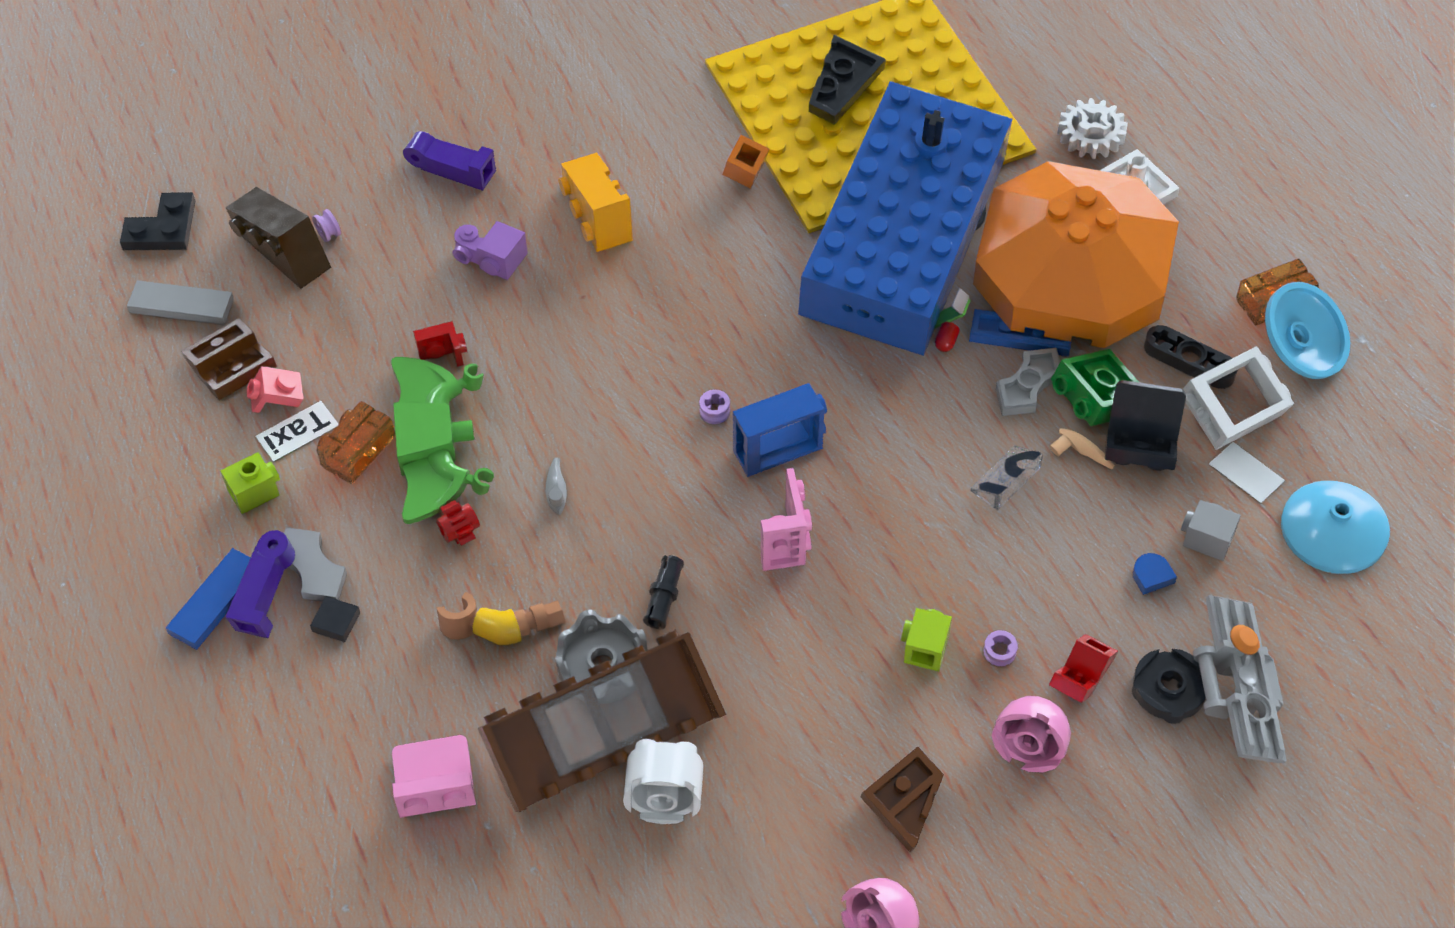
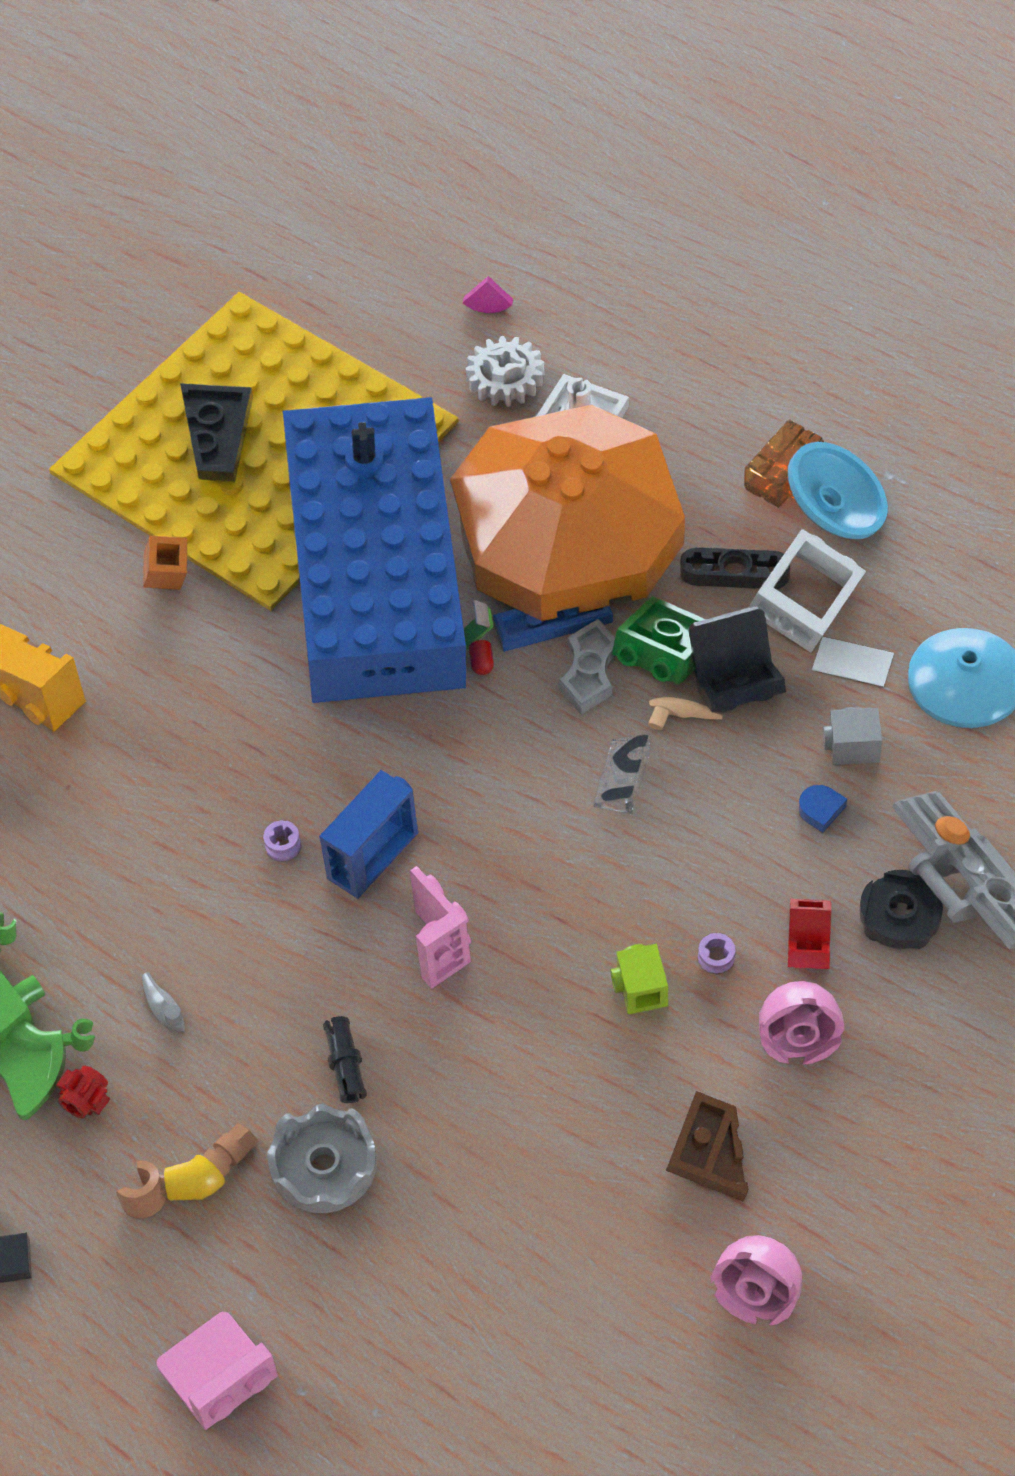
camera: 25 degrees left, 0 degrees up
(599, 719) = (362, 1223): reddish brown window -> none
(663, 781) = (464, 1252): white brick -> none
(1112, 68) = (488, 297): none -> dark pink tile

